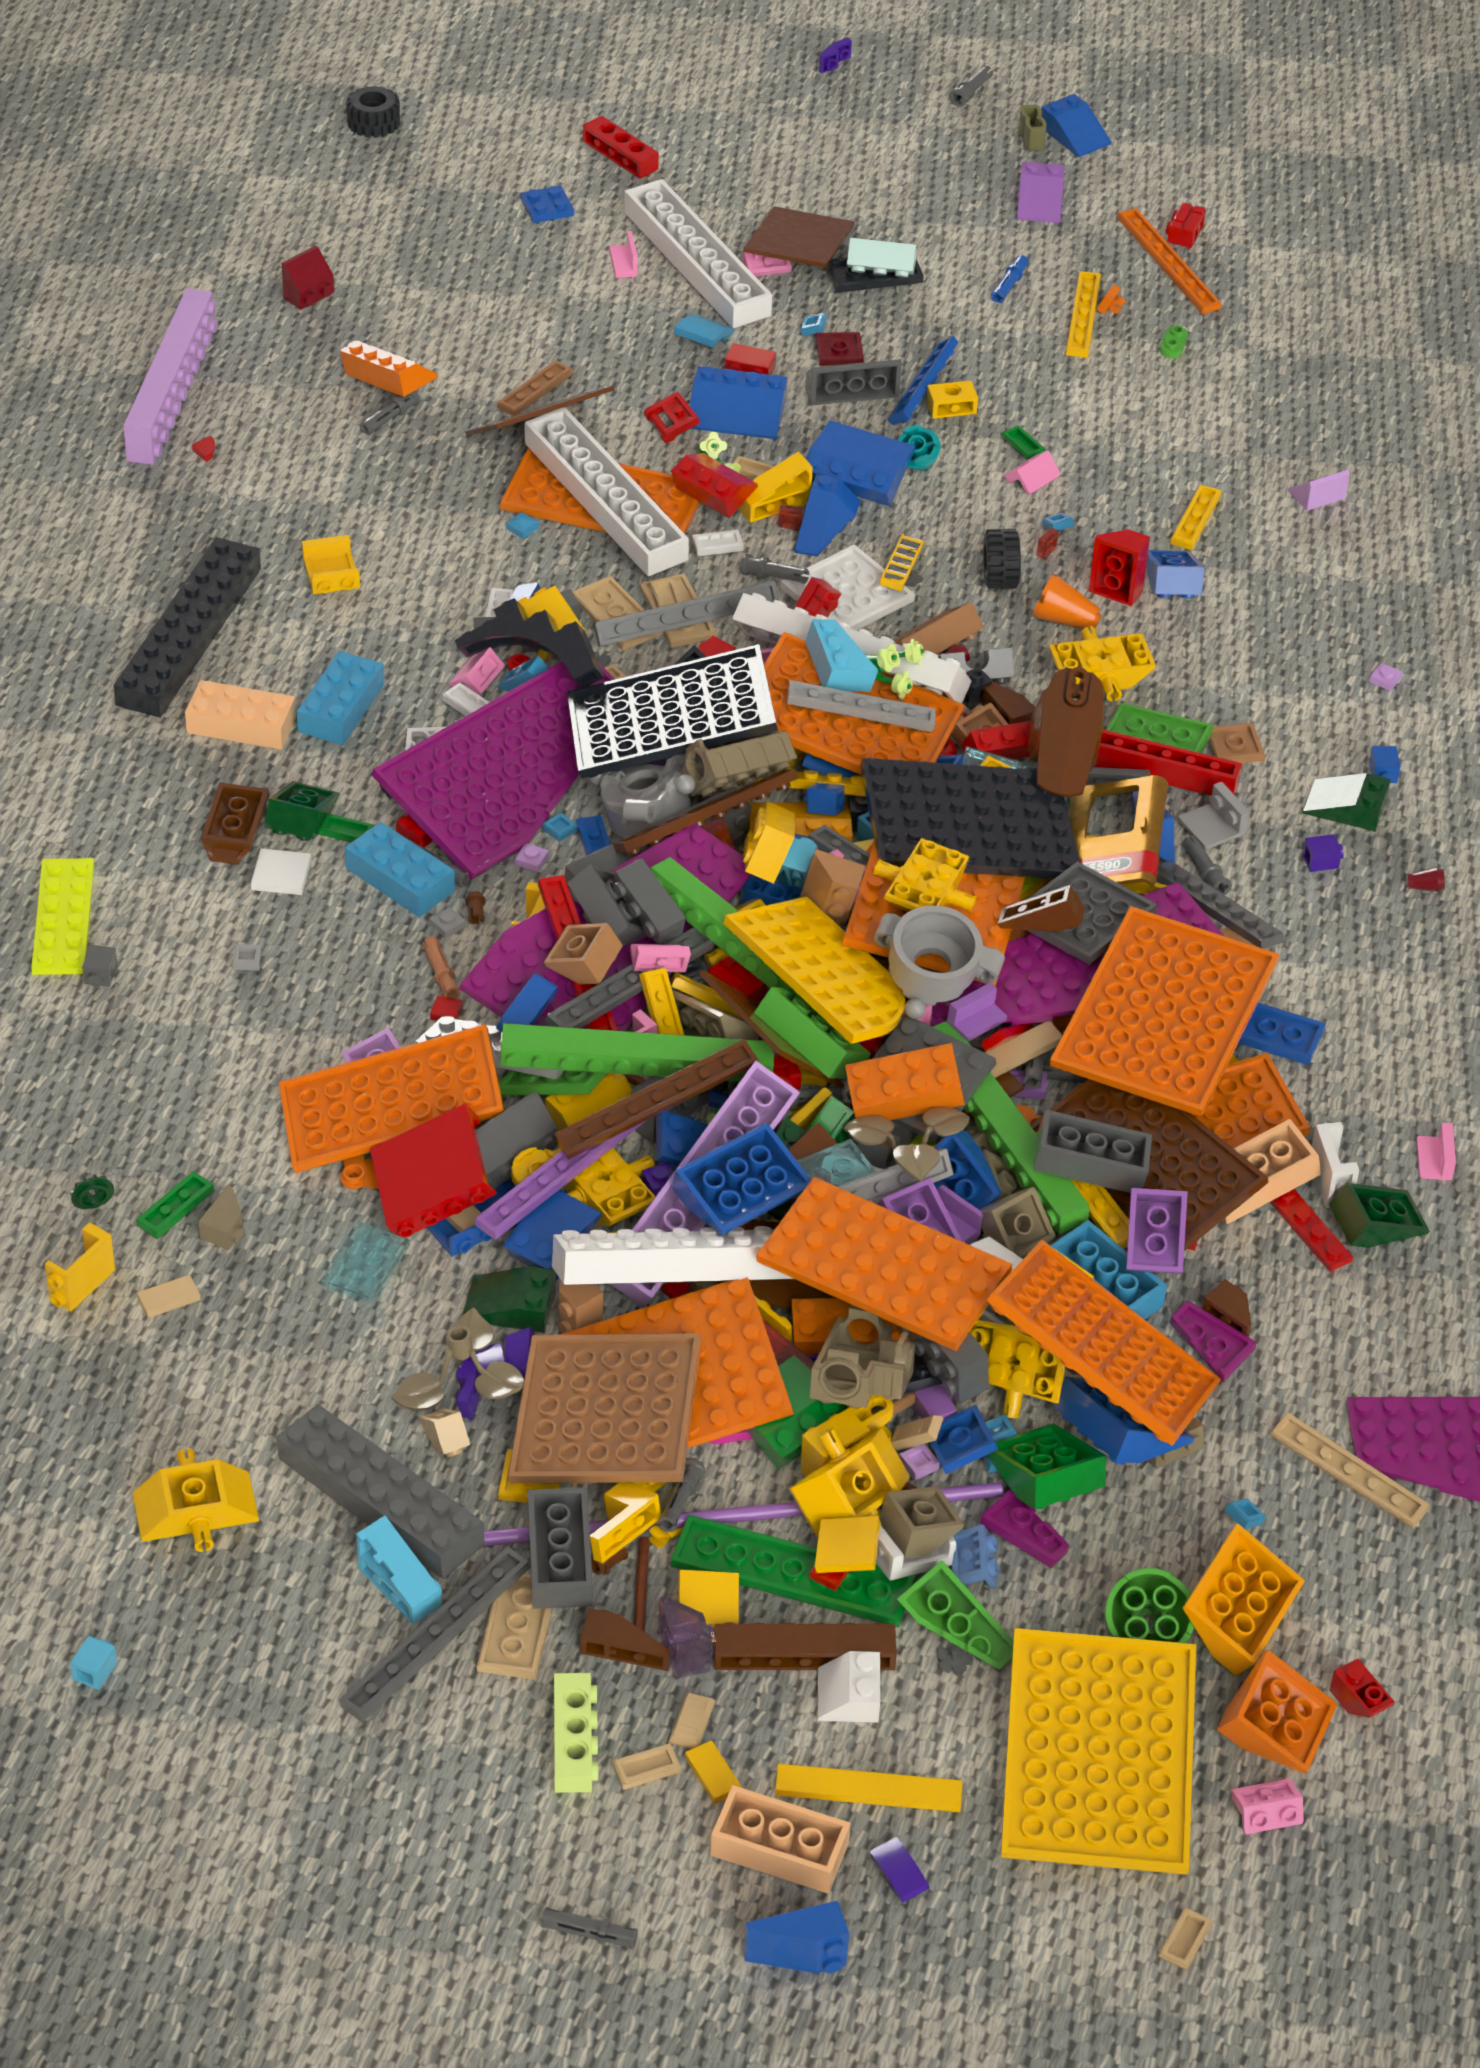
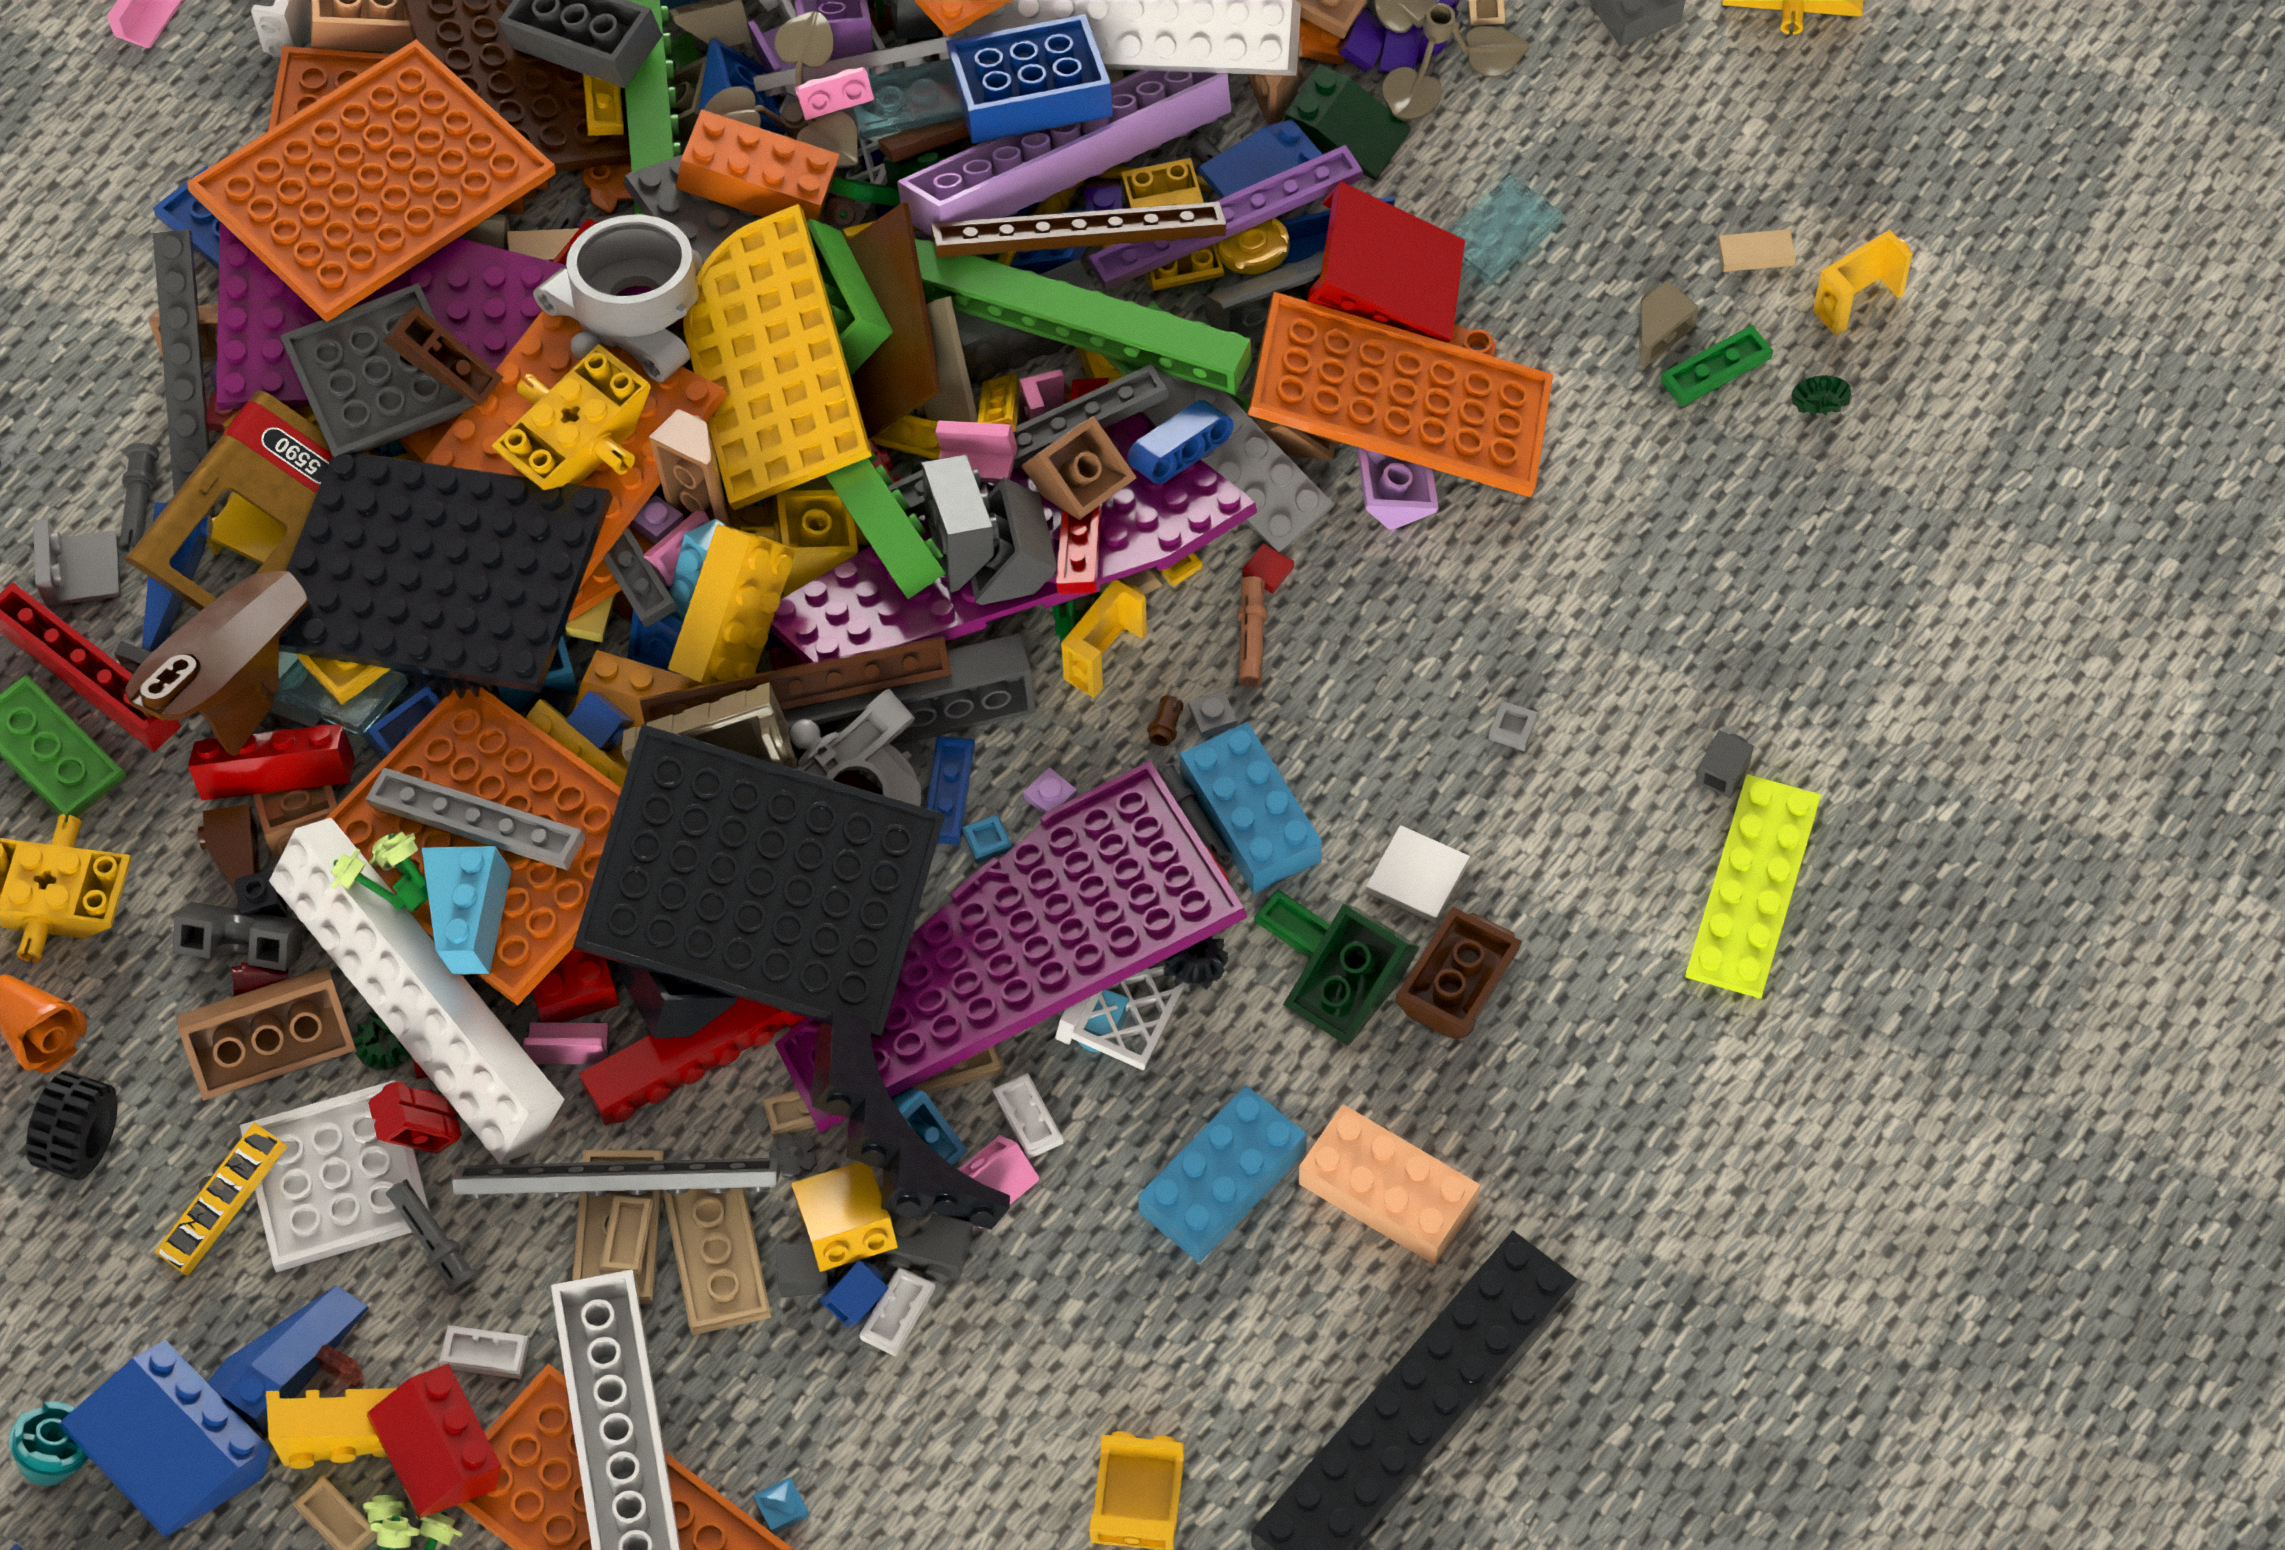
camera: 155 degrees left, 15 degrees up
(876, 1149) = (834, 92): none -> bright pink bracket

